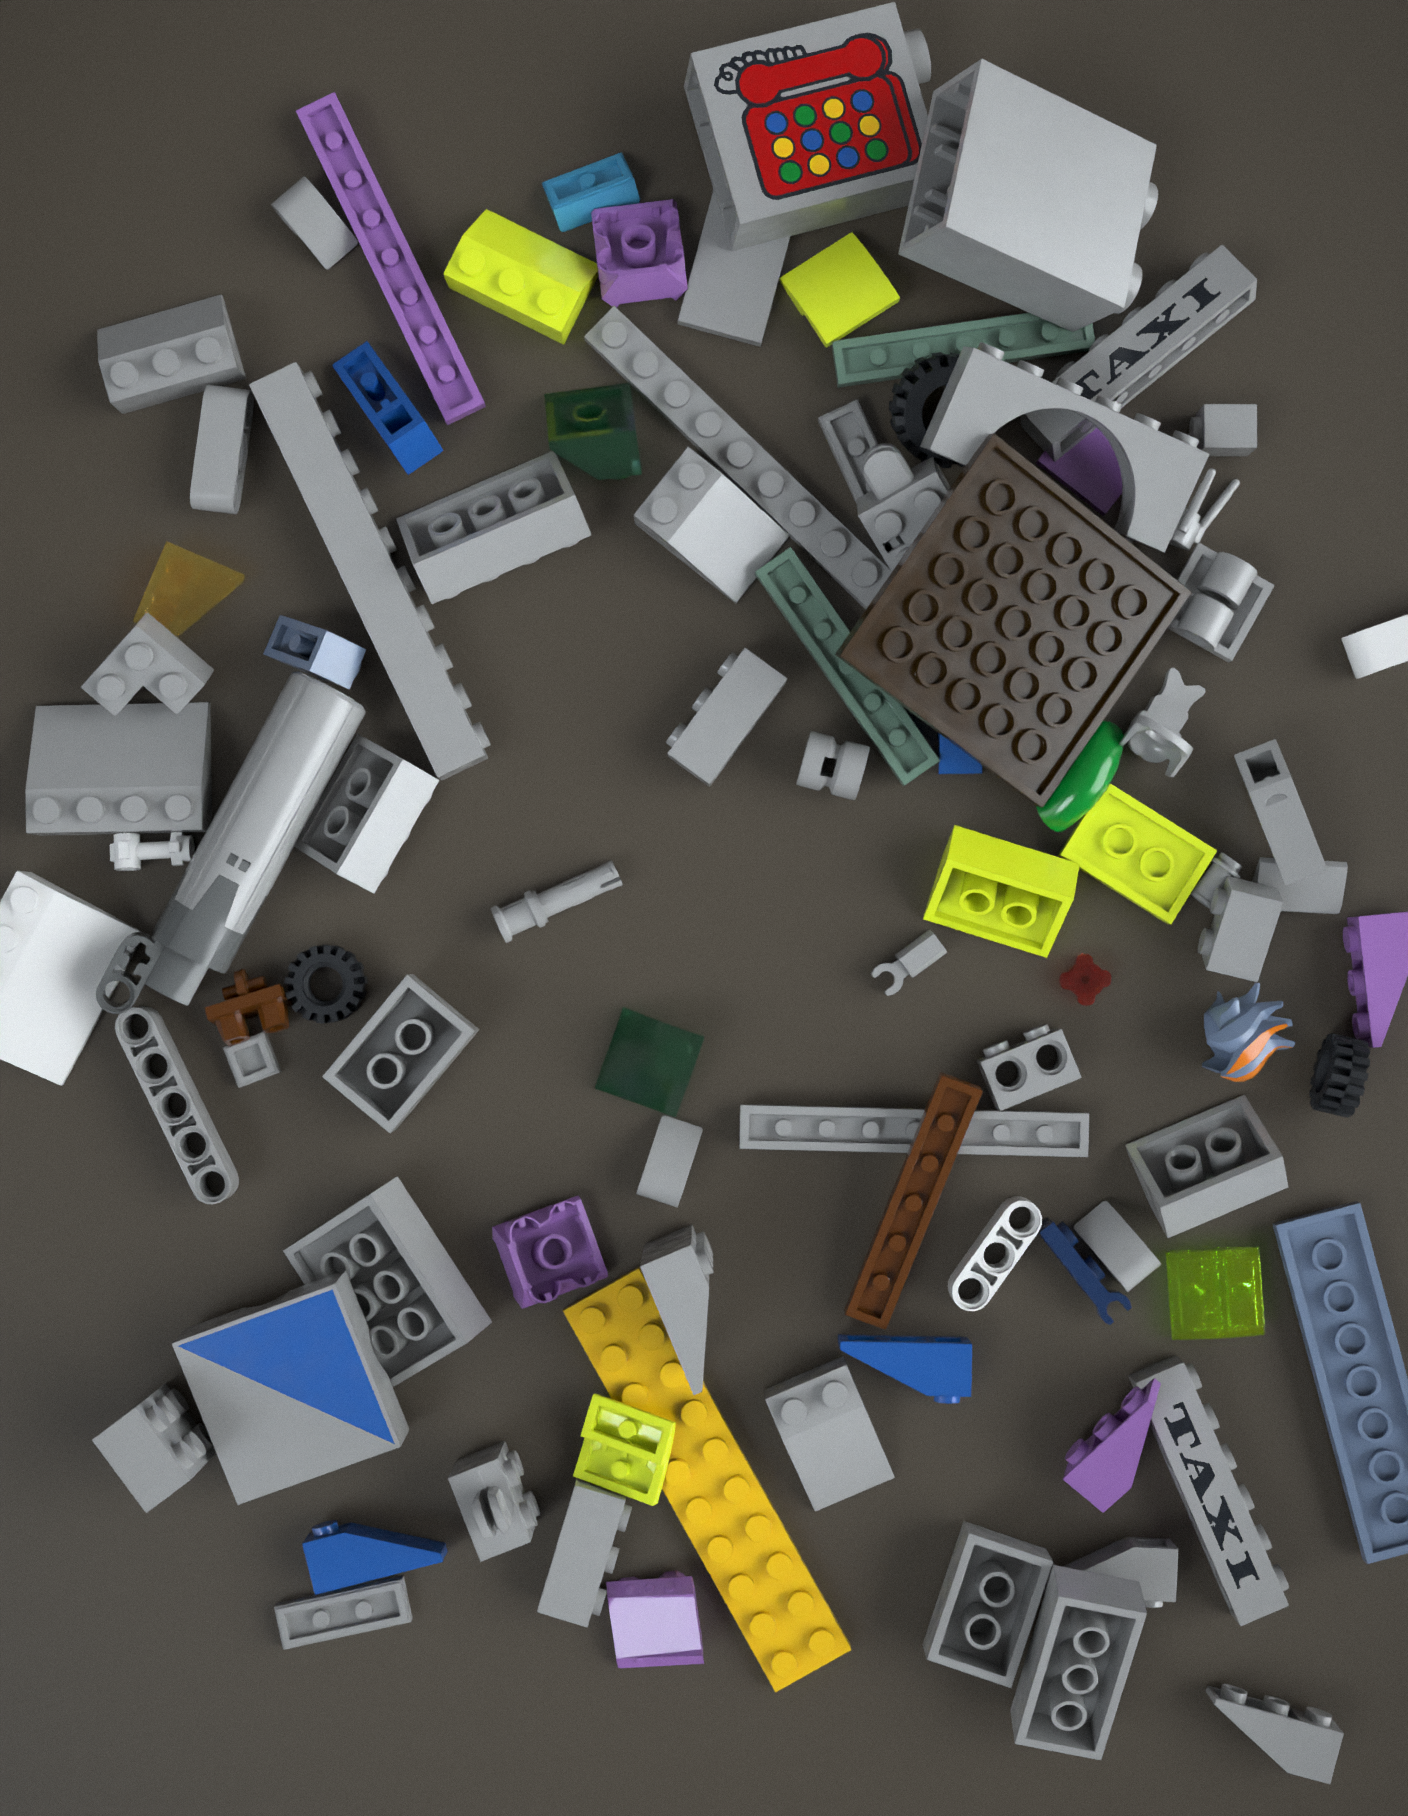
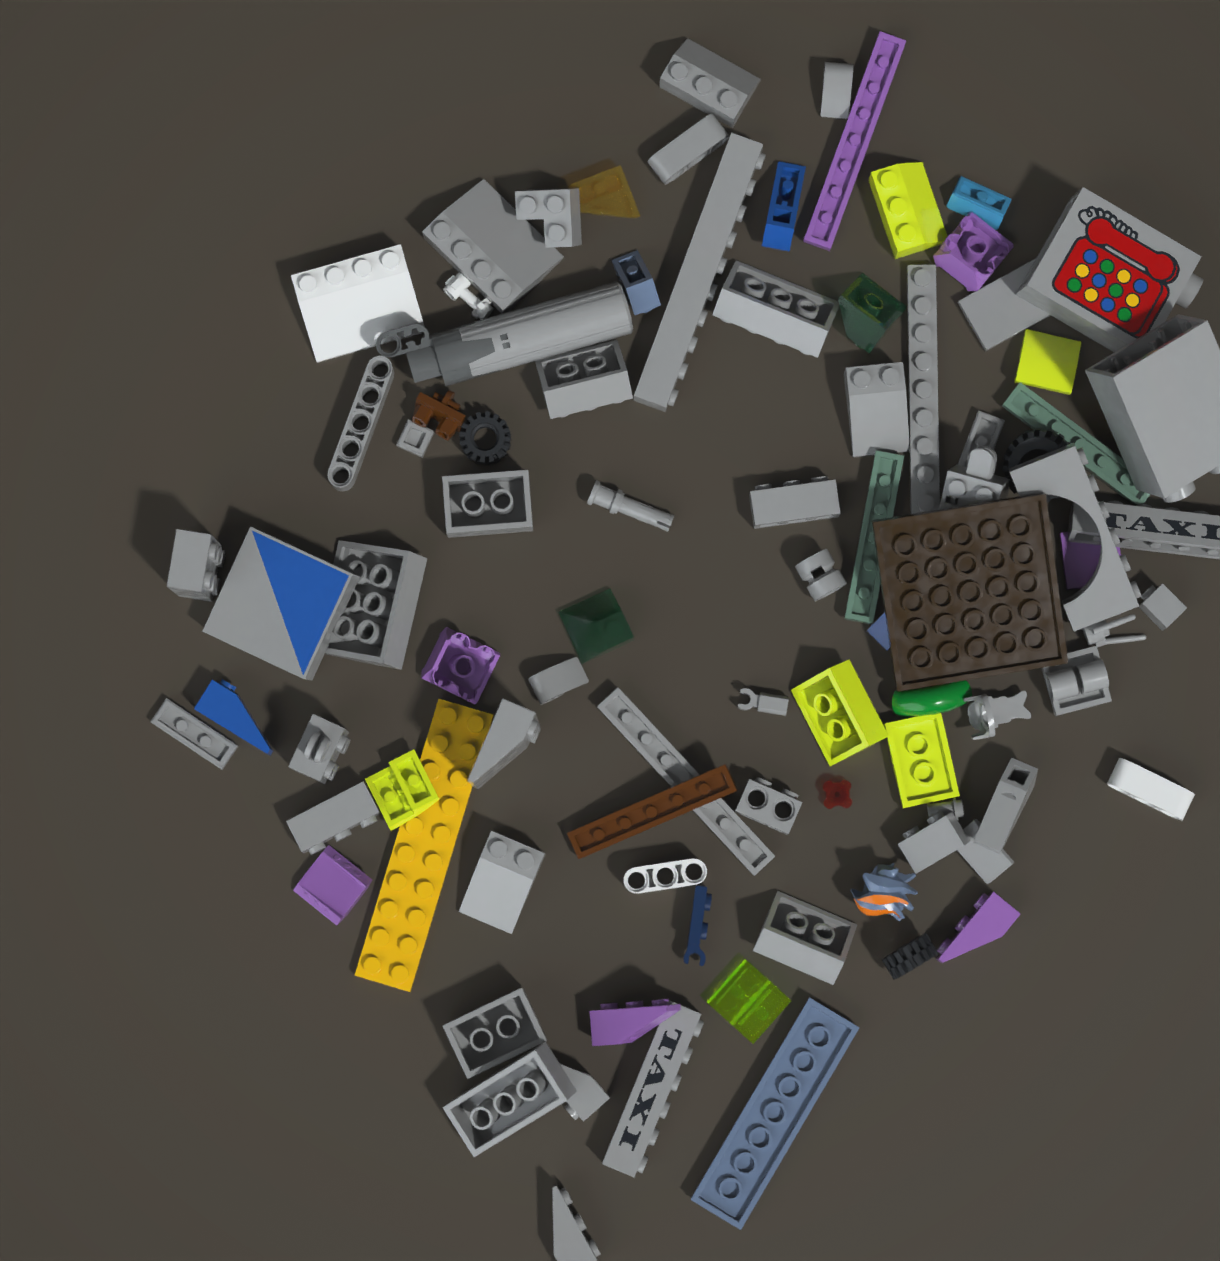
camera: 45 degrees right, 5 degrees down
(925, 1363) = (578, 891): blue slope -> none
(1117, 1245) = (725, 932): light grey panel -> none

